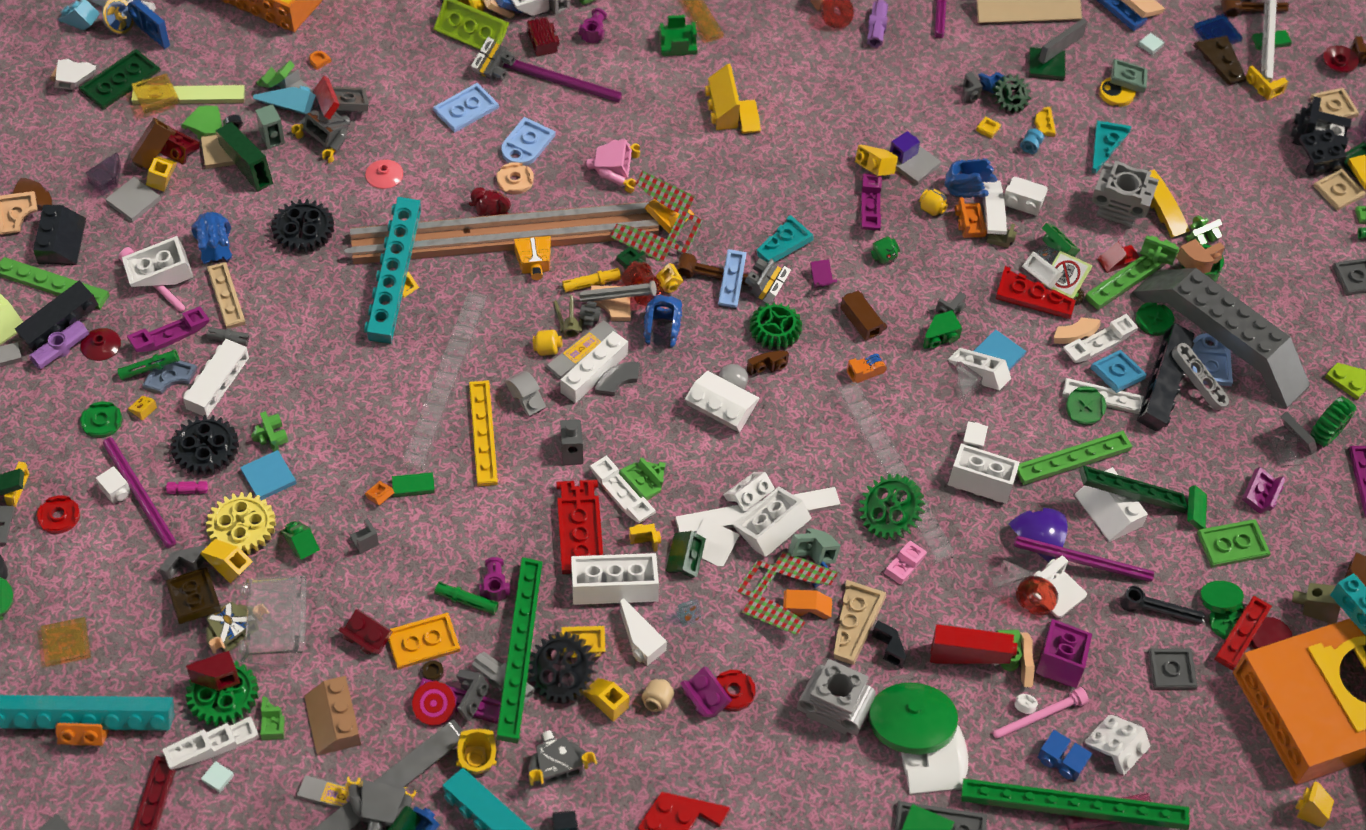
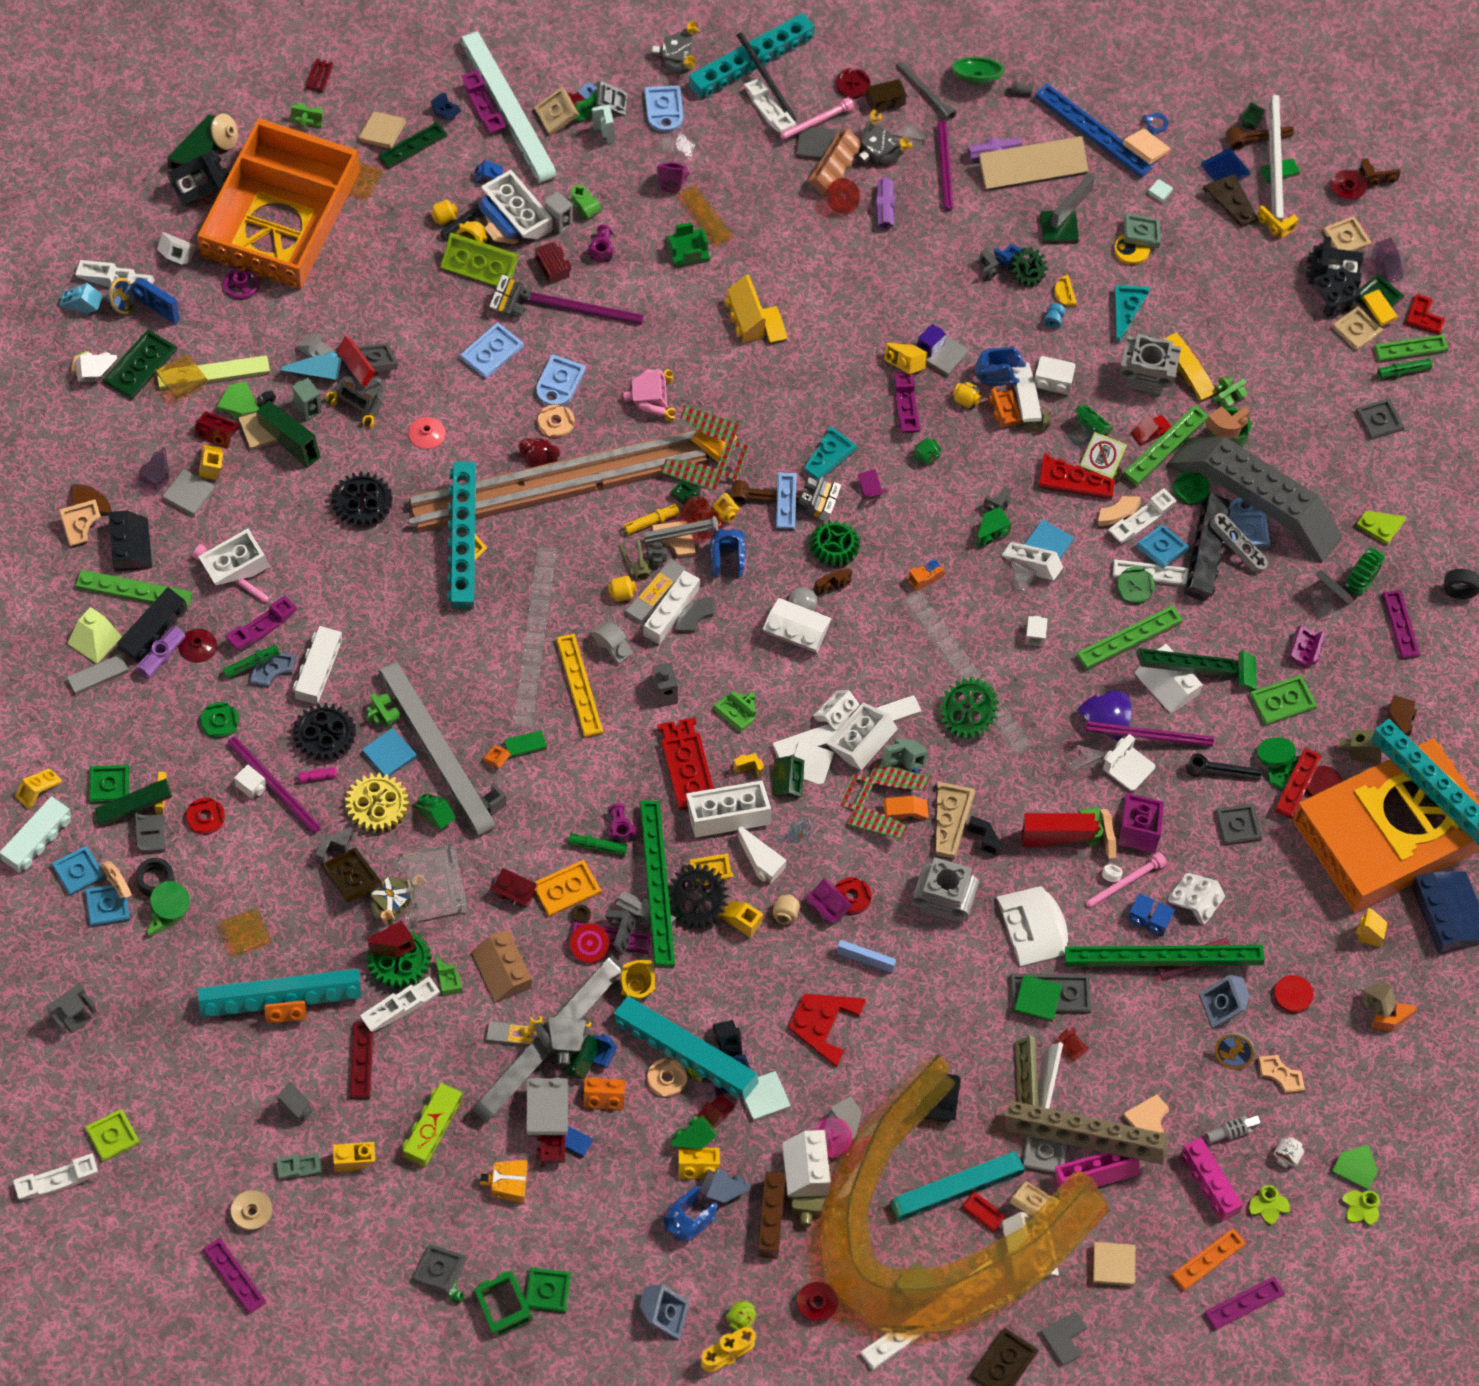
camera: 10 degrees left, 5 degrees up
(143, 407) = (255, 702): yellow slope -> none
(151, 143) = (195, 434): reddish brown brick -> none
(212, 235) = (279, 523): blue piece -> none
(217, 777) = (412, 1033): light aqua tile -> none
(222, 334) = (316, 621): dark grey pin -> none
(226, 295) = (305, 580): tan tile -> none
(226, 559) = (374, 838): yellow slope -> none
(236, 18) = (243, 277): none -> magenta piece
(272, 77) = (297, 344): bright green slope -> none
(319, 59) = (333, 316): orange tile -> none
(319, 478) = (437, 748): none -> light grey beam
(533, 255) = (591, 501): light orange torso -> none
(557, 760) = (709, 978): dark grey torso -> none
(620, 491) = (718, 726): white slope -> none
(738, 759) = (866, 956): none -> light blue tile
(862, 315) = (915, 521): reddish brown brick -> none
(906, 562) = (988, 758): bright pink slope -> none
(913, 718) = (1015, 899): green dish -> none
(983, 473) = (1049, 664): white slope -> none
(988, 127) = (1009, 305): yellow tile -> none
(1041, 586) = (1112, 765): clear red tile -> none
(1042, 270) = (1079, 452): white tile -> none
(1159, 250) = (1188, 418): bright green hips -> none

